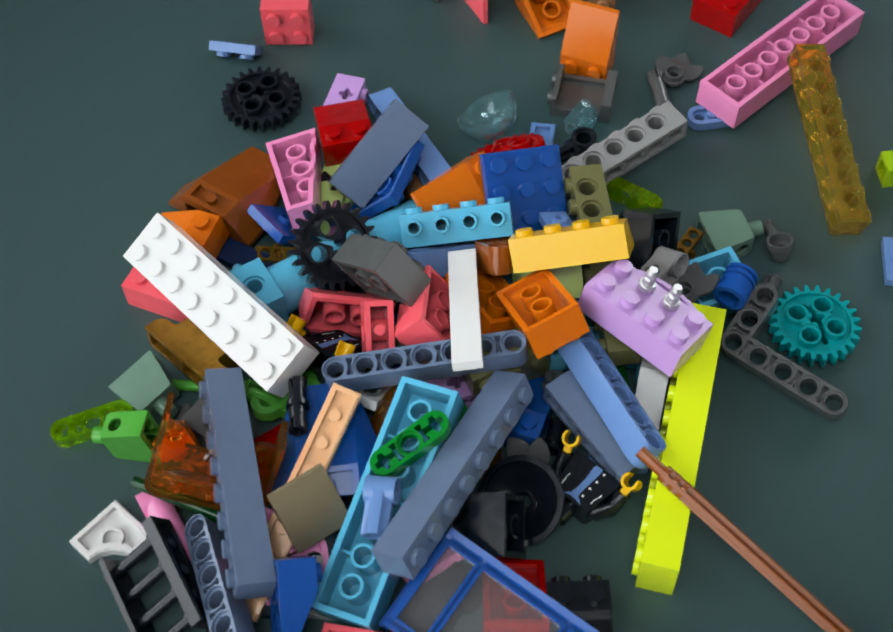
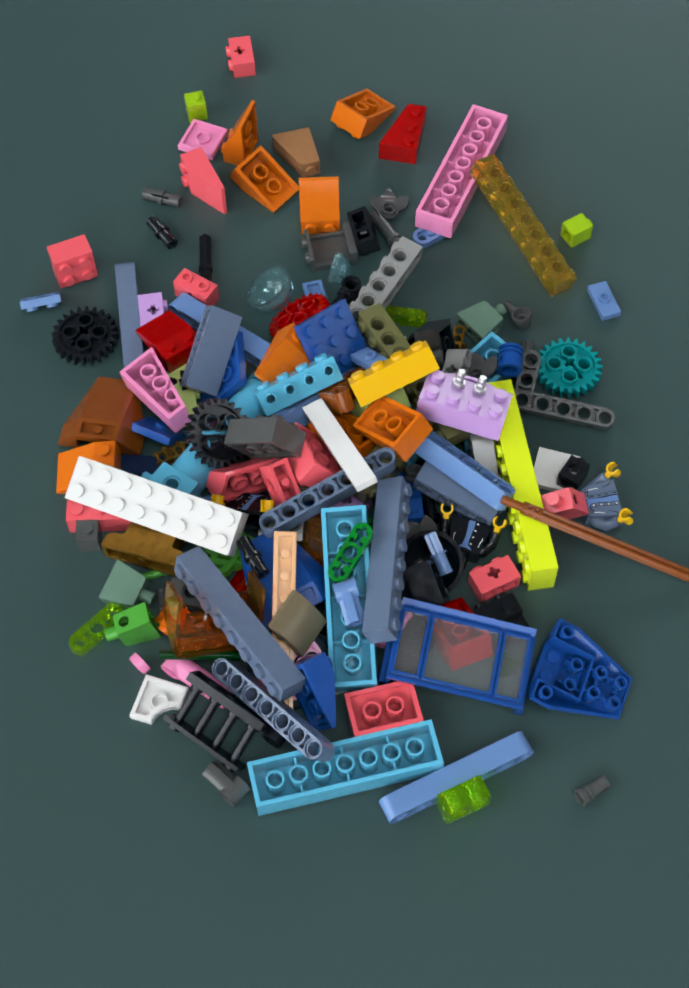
camera: 25 degrees left, 5 degrees up
(114, 483) = (139, 663): none -> bright pink tile
(139, 311) = (88, 535): none -> dark grey brick
(334, 59) = (128, 311): none -> sand blue beam
(403, 20) = (162, 232): none -> black pin
(408, 88) = (197, 287): none -> coral brick
(432, 69) = (205, 266): none -> black axle
(530, 490) = (438, 553): none -> medium blue axle
(611, 553) = (494, 578): none -> coral brick
(630, 87) = (363, 231): none -> black brick
(725, 489) = (563, 503): none -> coral torso
(740, 447) = (548, 466): none -> white tile
(754, 468) = (567, 479): none -> black brick
(782, 509) = (604, 503): none -> sand blue torso

